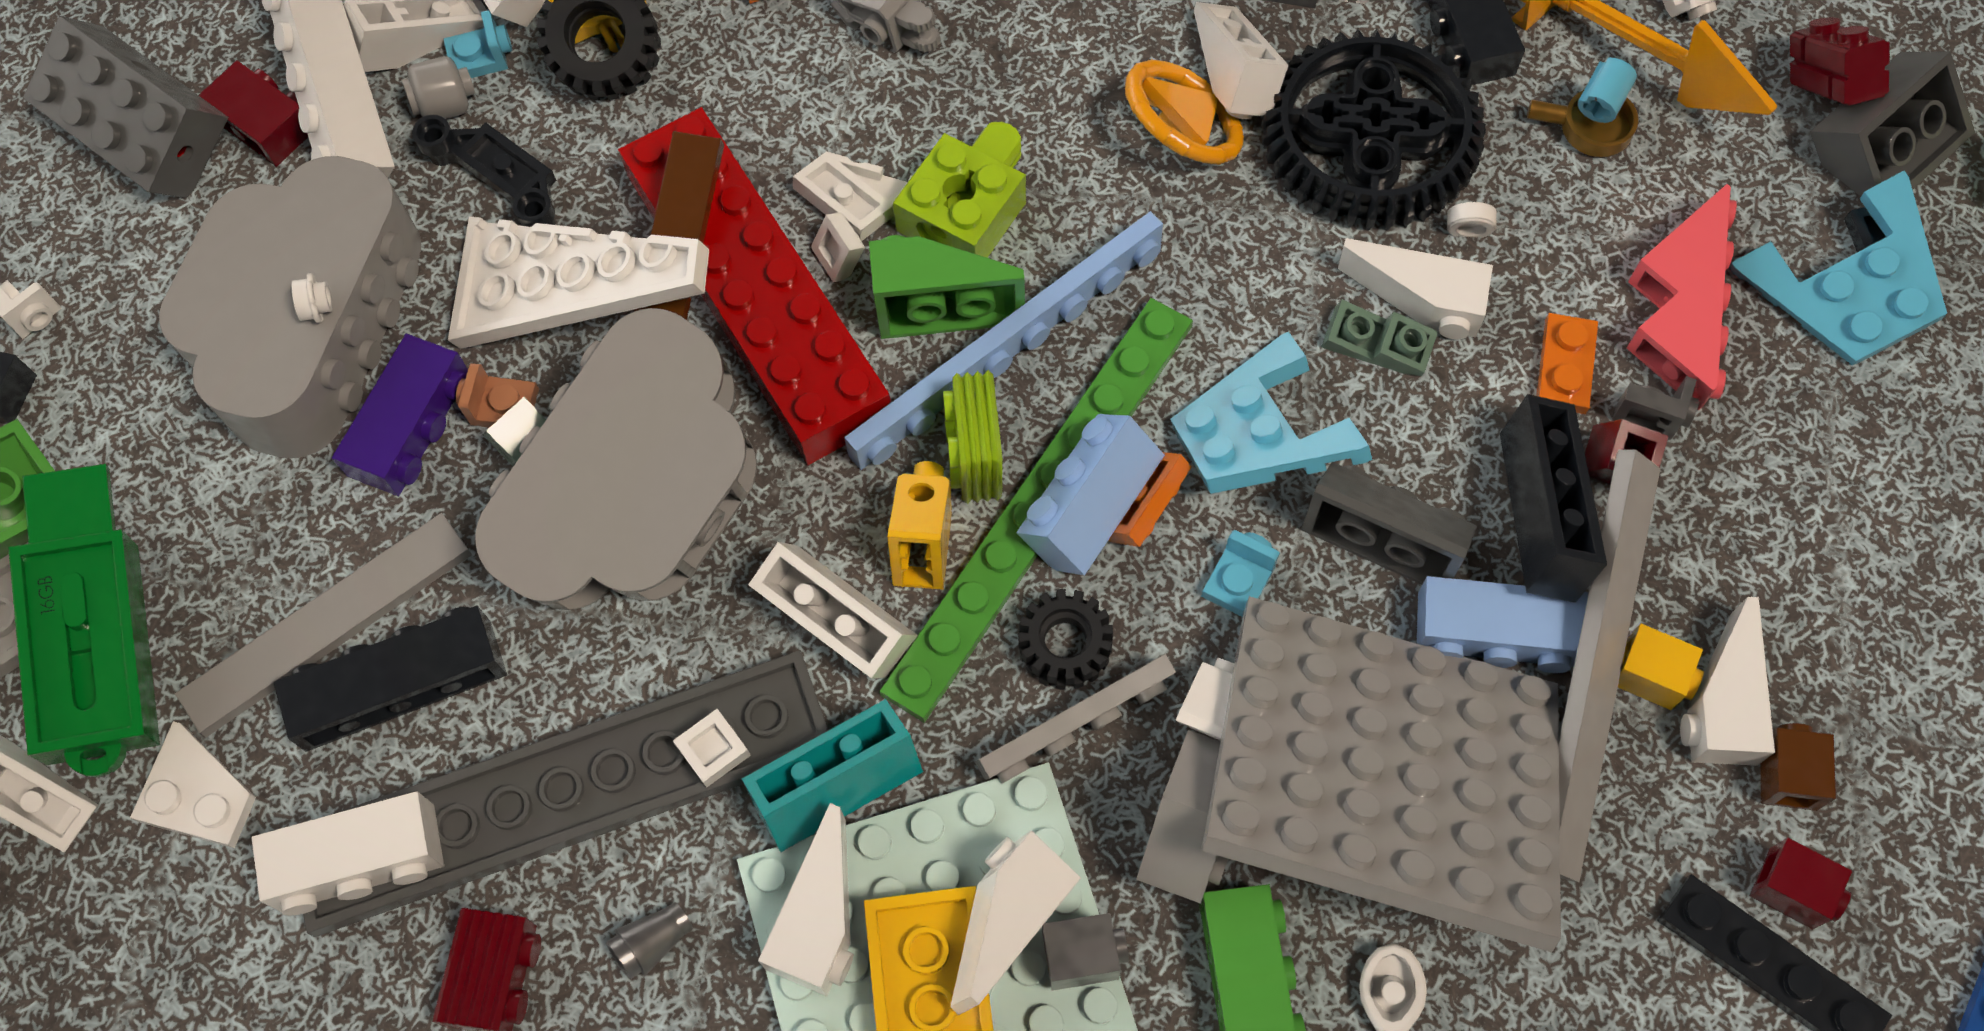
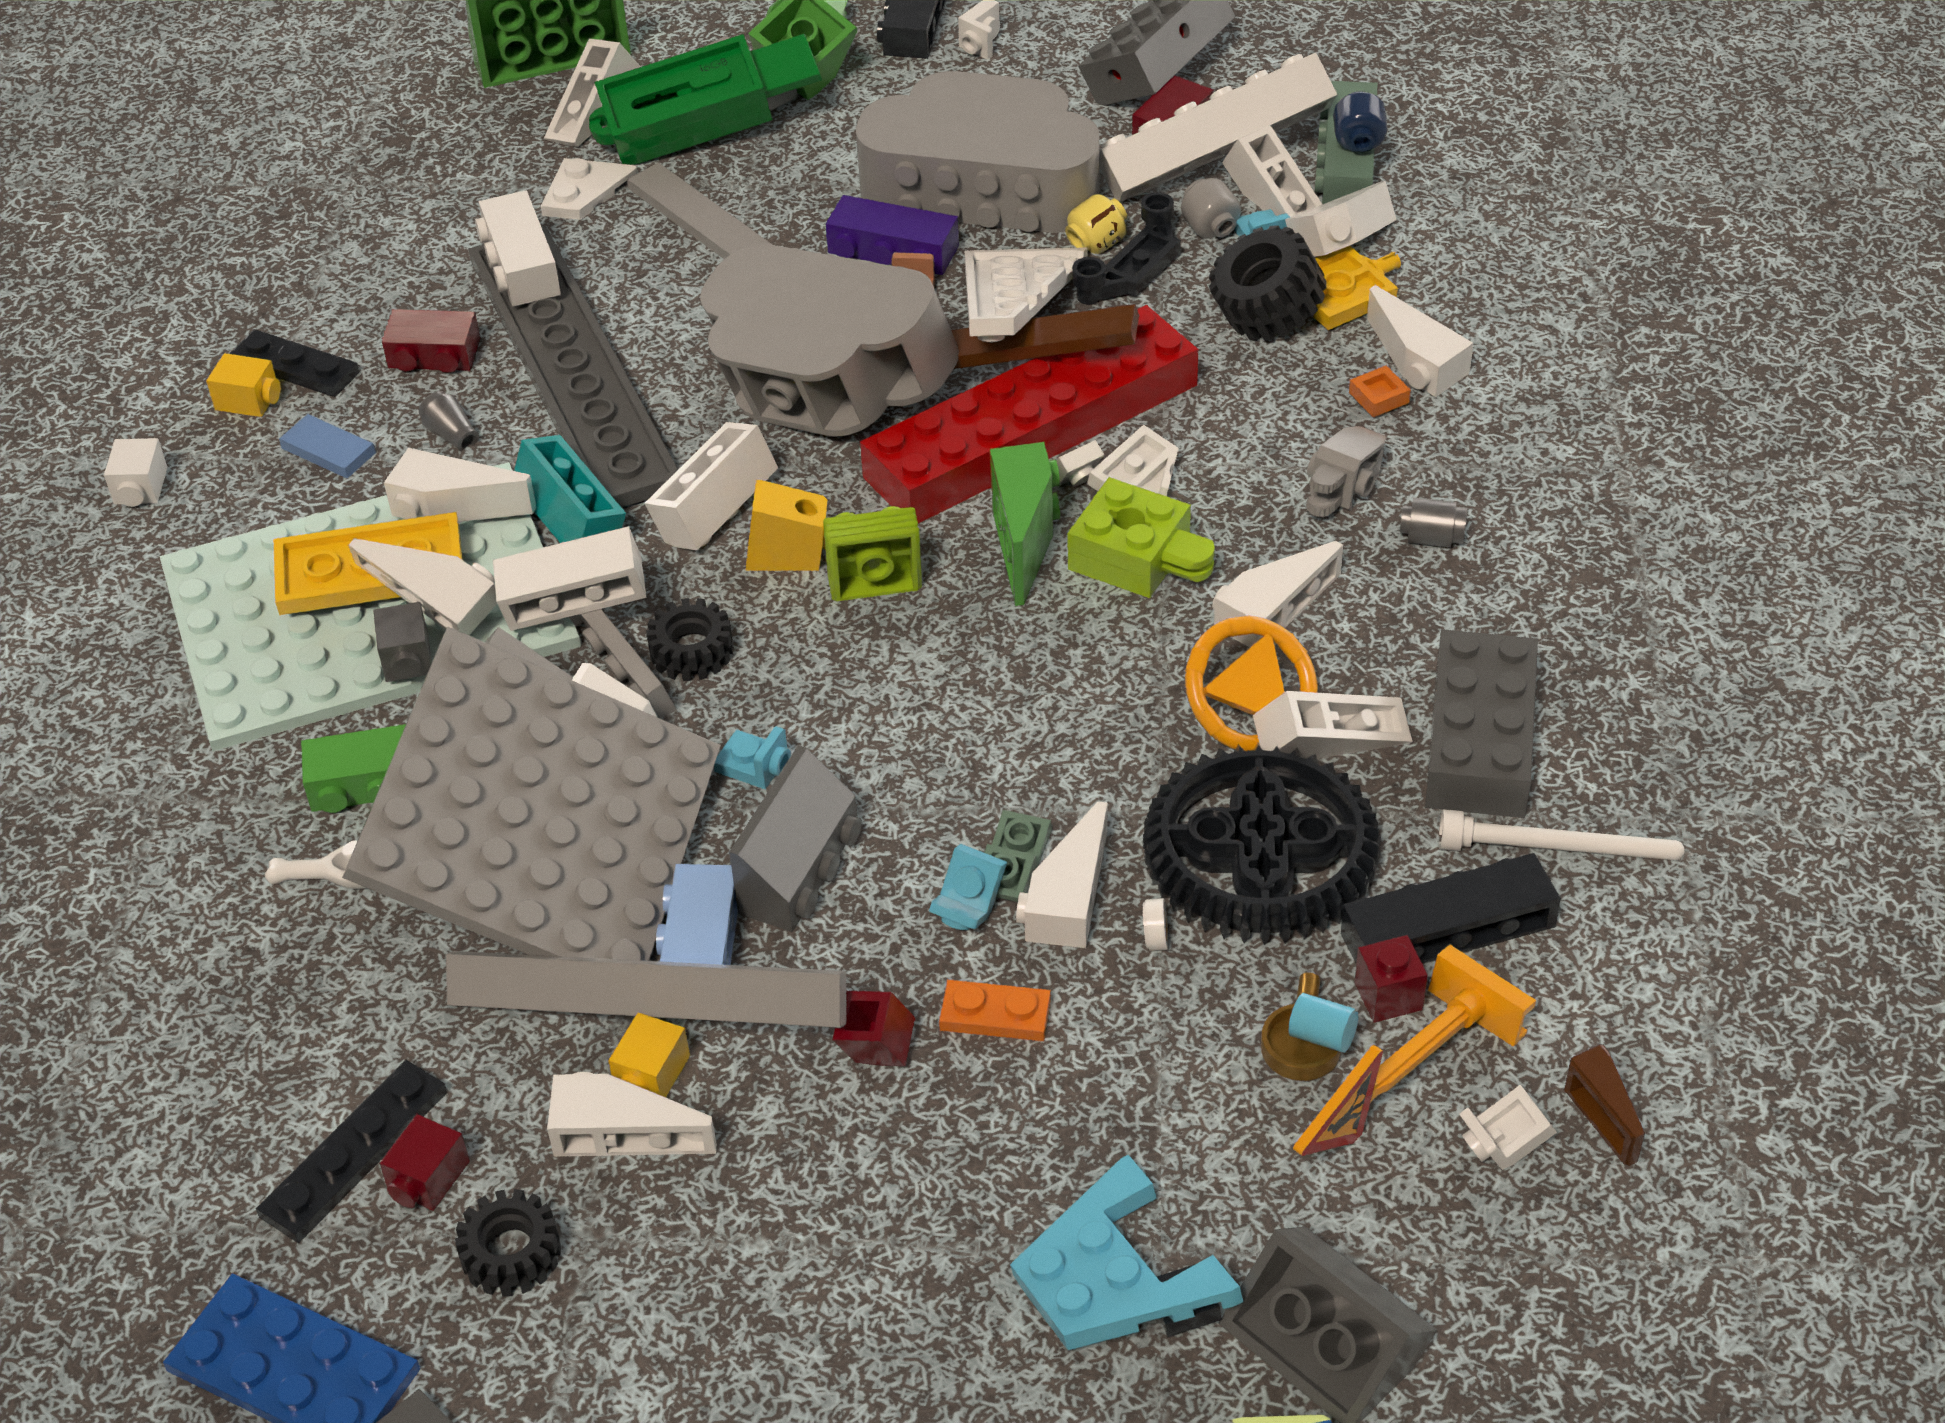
camera: 85 degrees right, 20 degrees down
(311, 298) = (954, 133): white plate -> none
(389, 678) = (662, 259): black brick -> none
(436, 202) = (1096, 224): none -> light yellow head
(711, 748) = (594, 428): white tile -> none
(994, 350) = (1003, 593): light blue plate -> none
(1003, 555) = (839, 627): bright green plate -> none
(1011, 750) = (569, 578): none -> white brick
(1060, 94) = (1279, 588): none -> white slope
(1090, 493) = (825, 635): light blue brick -> none
(1151, 501) = (809, 678): orange plate -> none
(1243, 438) = (901, 737): medium azure wing -> none
(1437, 375) = (968, 888): none -> medium azure bracket
(1546, 43) = (1390, 978): none -> dark red brick
(1552, 499) = (767, 935): black brick -> none
(1656, 410) = (935, 1075): flat silver bracket -> none
(1689, 288) = (1094, 1106): coral slope -> none
(1800, 769) = (541, 1165): reddish brown brick -> none
(1839, 61) = (1392, 1240): dark red brick -> none
(1914, 793) = (516, 1268): none -> black tyre

